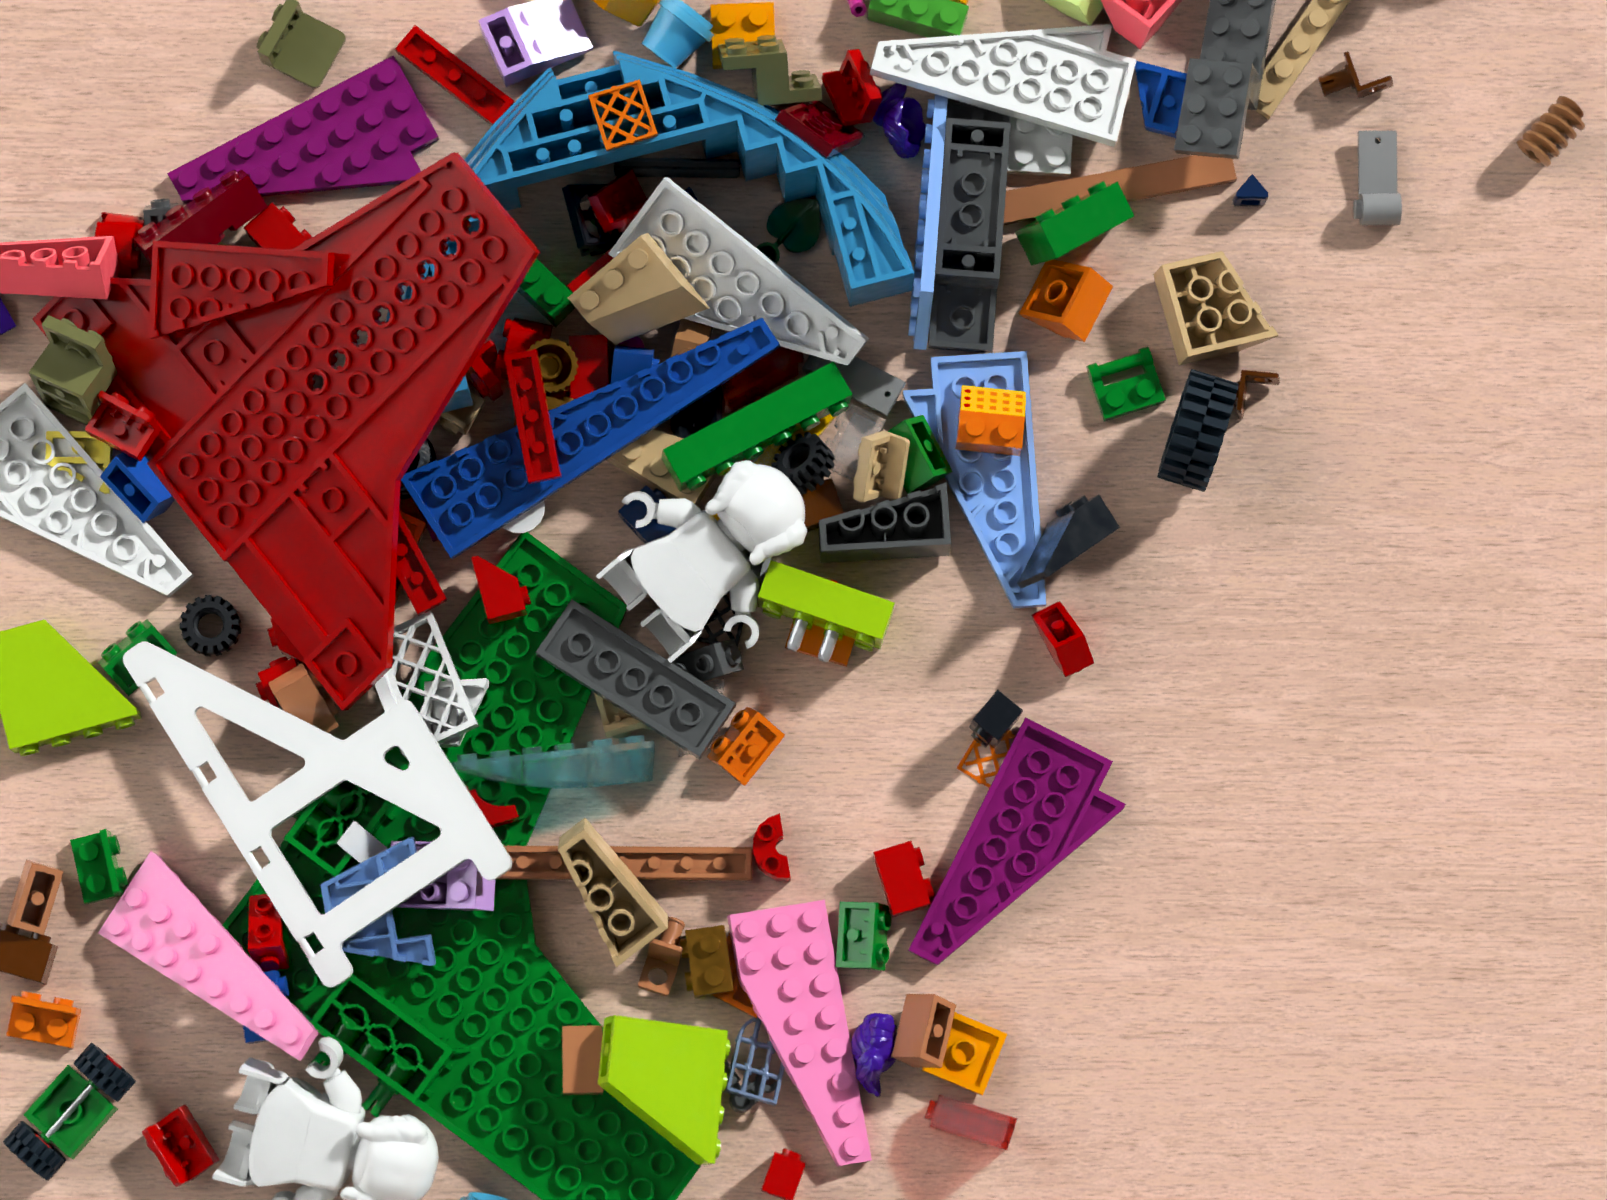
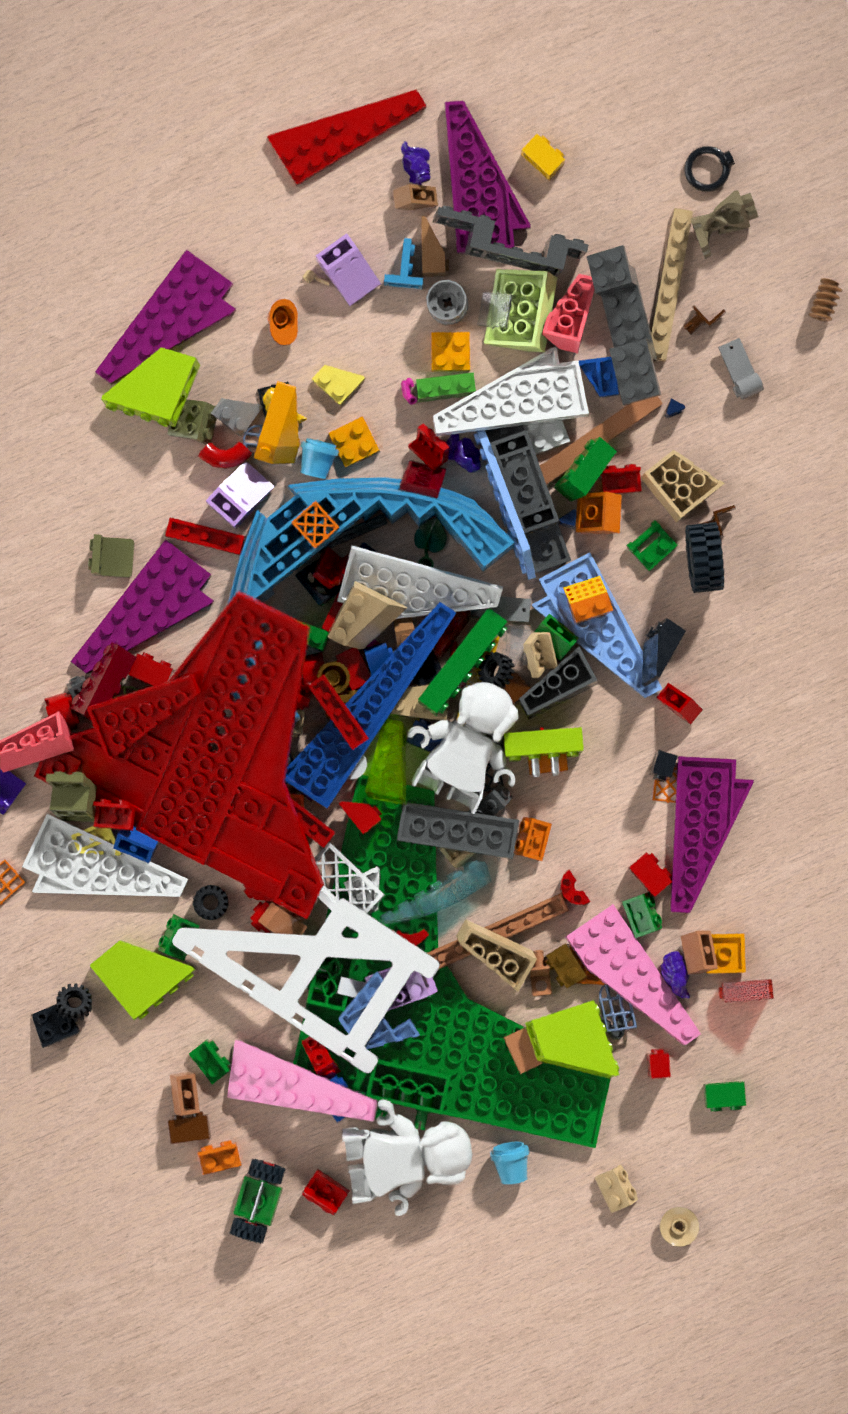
camera: 20 degrees left, 5 degrees up
(575, 534) = (388, 767): none -> clear neon green wedge
(769, 70) = (377, 455): olive bracket -> none
(1016, 288) = (568, 519): none -> dark blue slope
(1124, 264) = (621, 479): none -> red bracket

